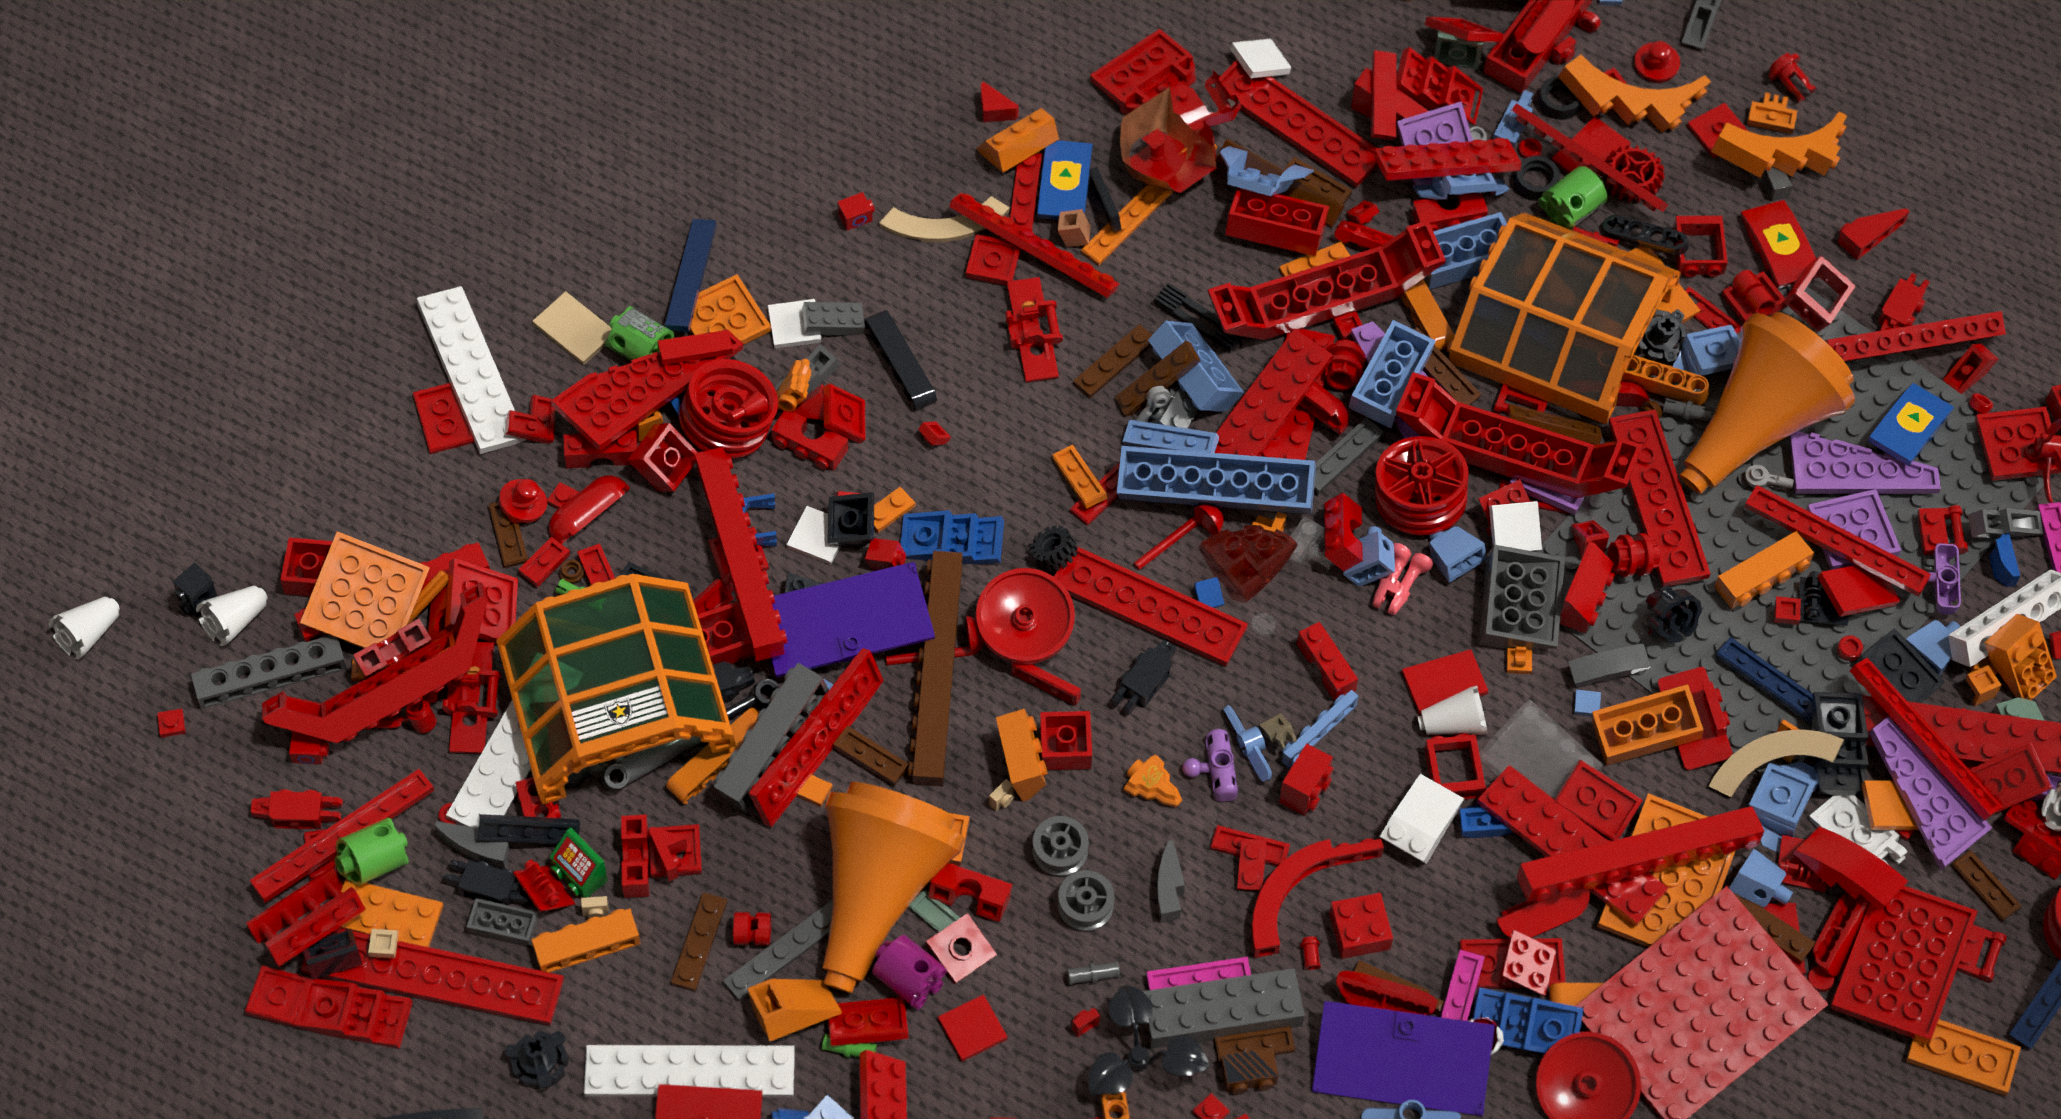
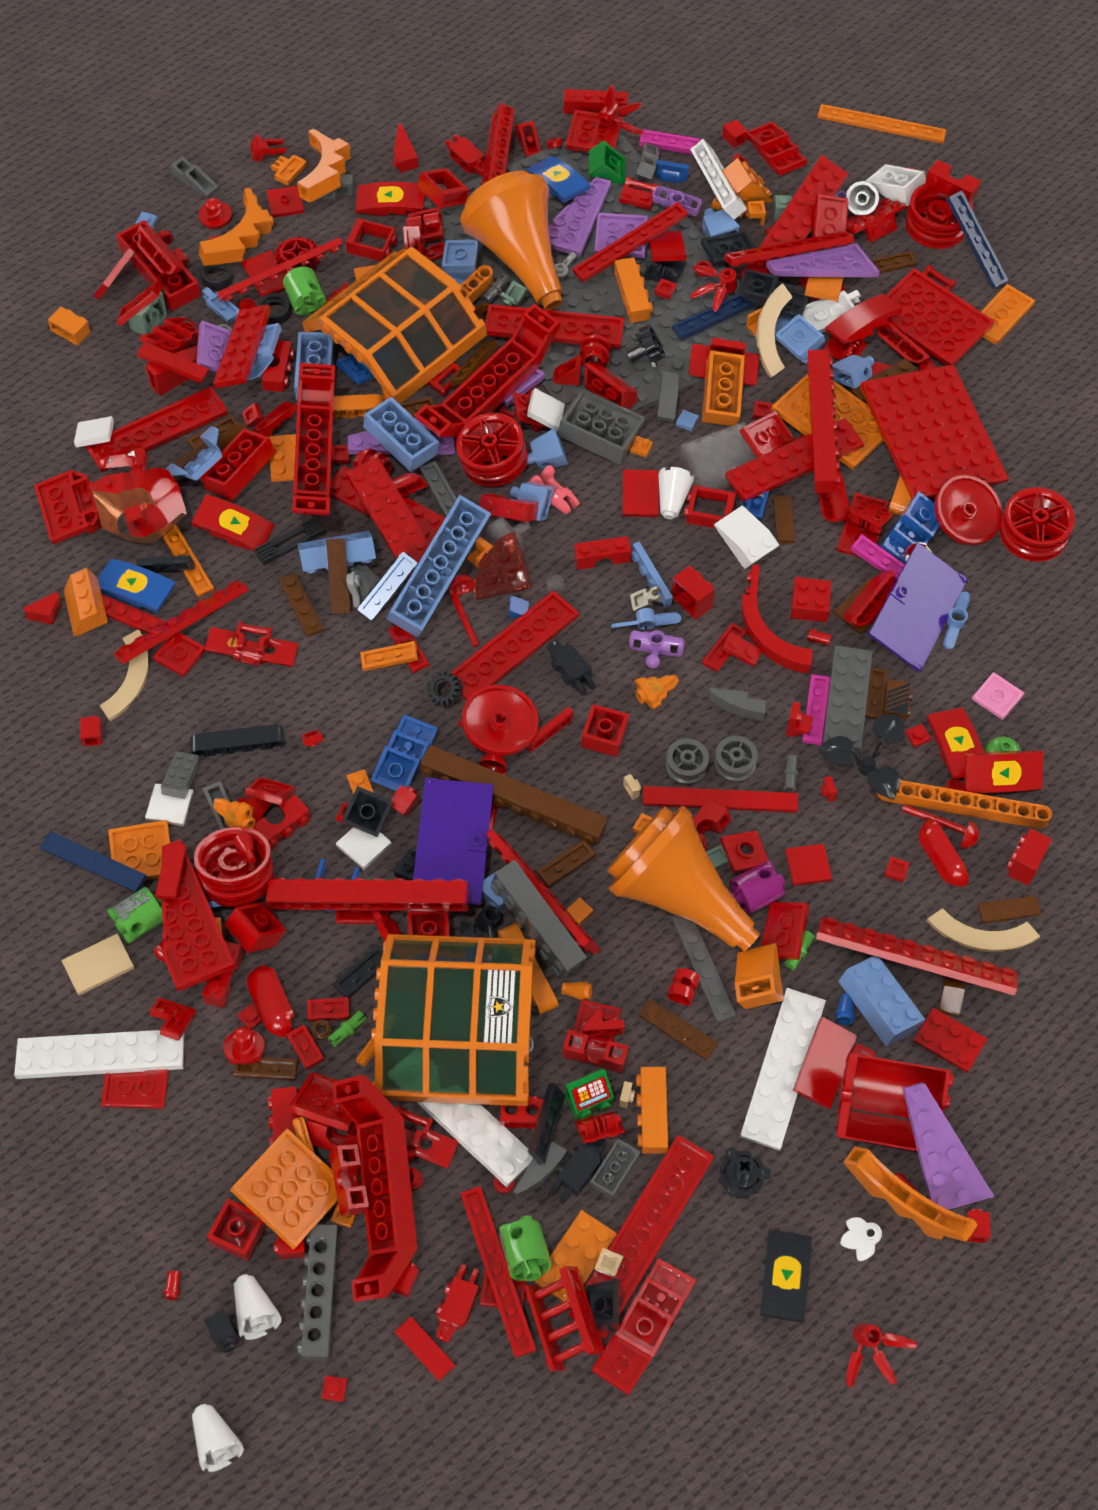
camera: 70 degrees left, 0 degrees up
(236, 531) = (172, 1285): none -> red pin
(239, 796) = (425, 1349): none -> red tile
(710, 818) = (577, 990): none -> orange cone
(1022, 753) = (610, 757): orange slope -> none
(1027, 903) = (727, 798): none -> red tile
(1074, 228) = (181, 590): nougat brick -> none
(1164, 953) = (798, 722): none -> red slope
(1194, 246) = (232, 523): none -> red slope
(1479, 863) = (783, 519): none -> reddish brown tile
(1643, 785) = (761, 409): none -> red plate
(1647, 232) = (348, 261): black beam -> none
(1684, 434) = (514, 294): none -> sand green bracket
(1712, 291) = (413, 238): none -> red slope
(1834, 676) = (727, 284): none -> red plant
(1968, 476) = (607, 163): none -> green slope

